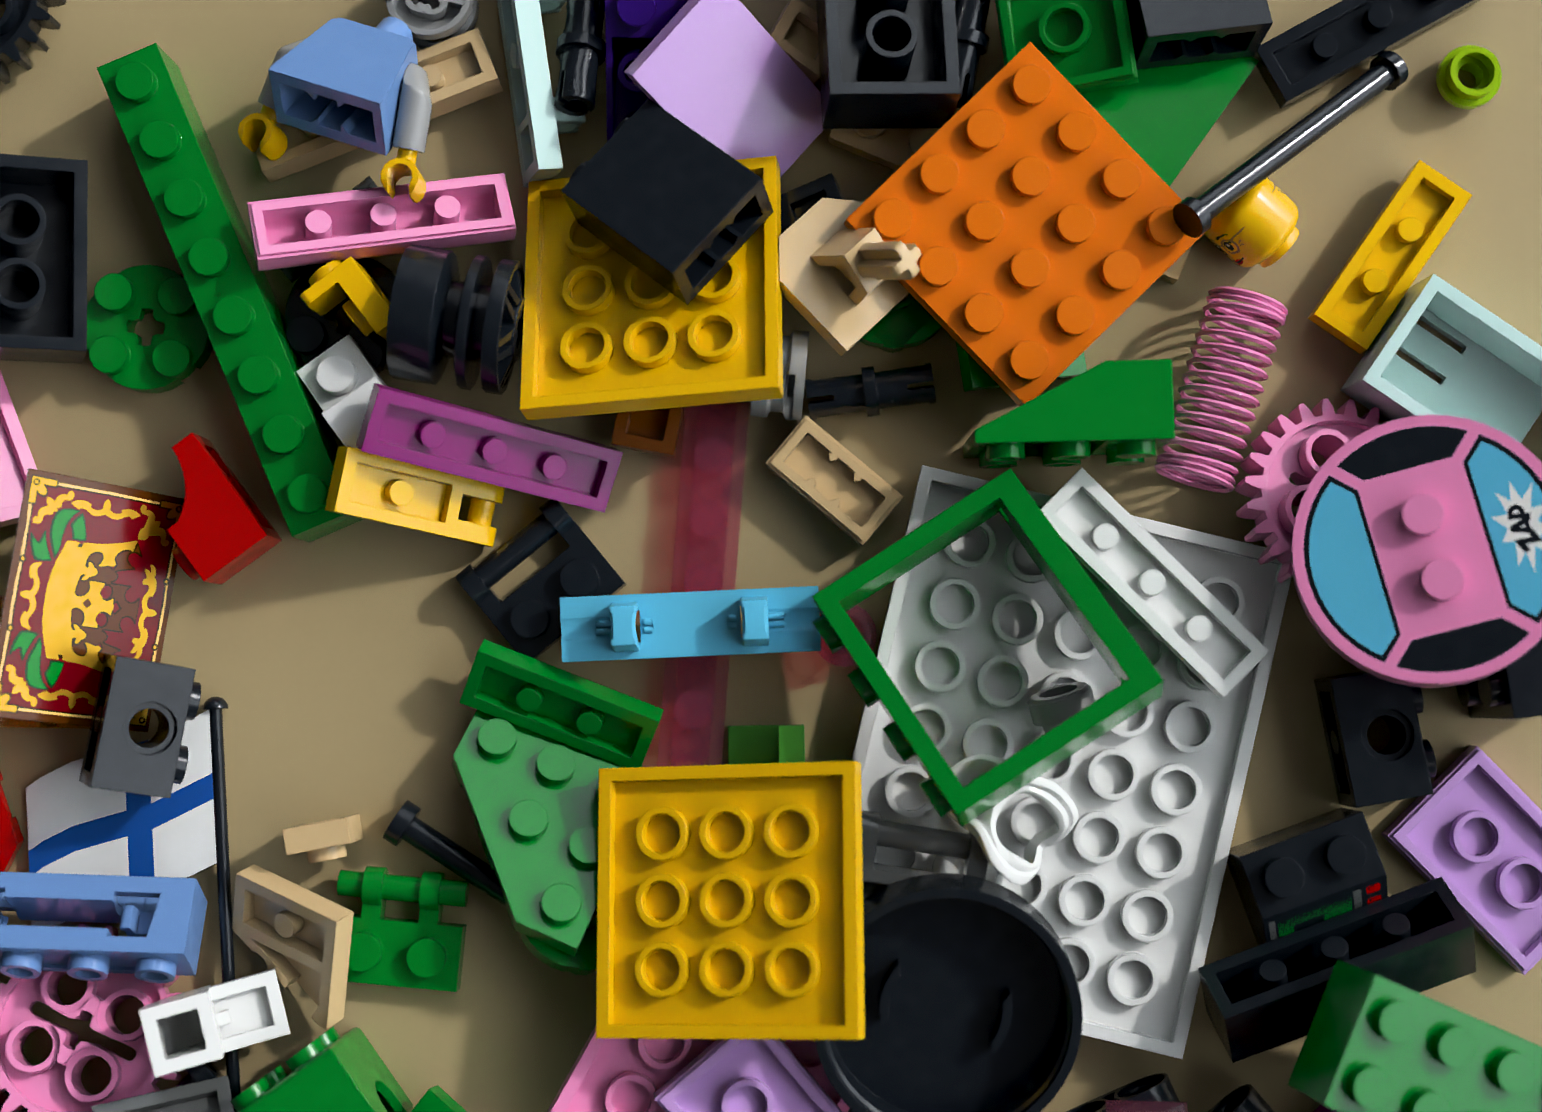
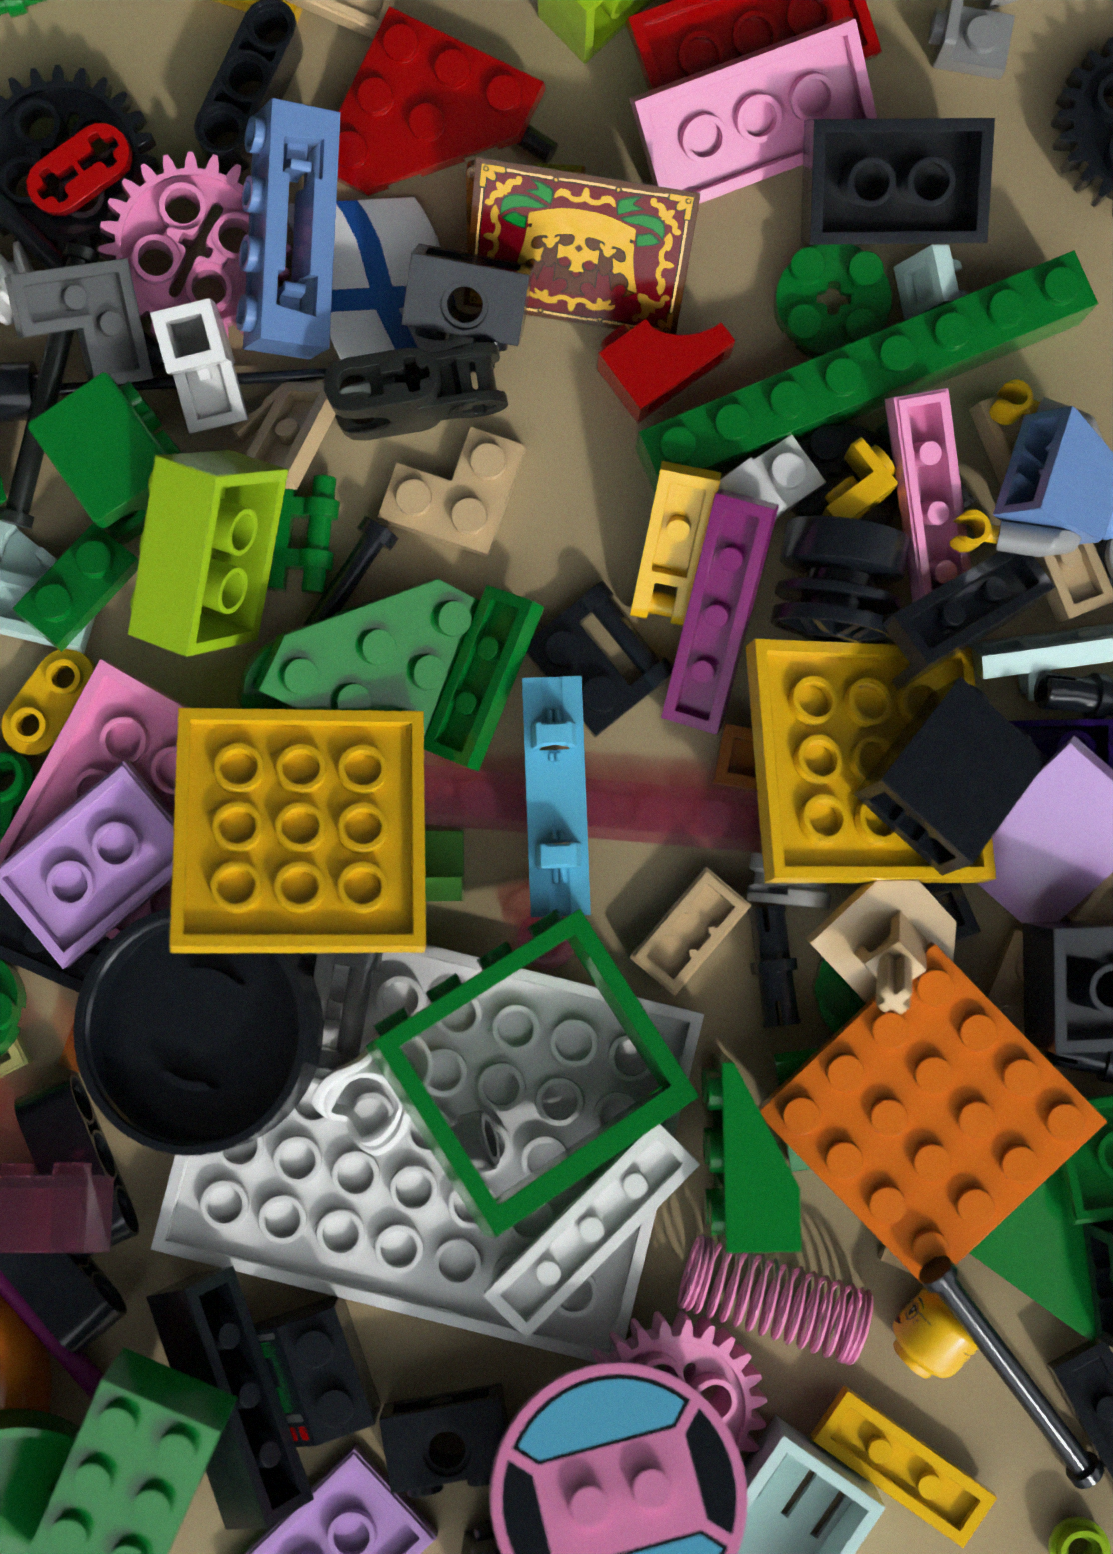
camera: 85 degrees right, 0 degrees up
(128, 225) = (927, 280): none -> light aqua tile
(228, 808) = (396, 373): none -> pearl dark grey piece
(324, 838) = (364, 462): tan plate -> none
(377, 735) = (457, 511): none -> tan plate
(421, 1010) = (206, 550): none -> lime brick
(489, 186) = (965, 611): none -> black panel

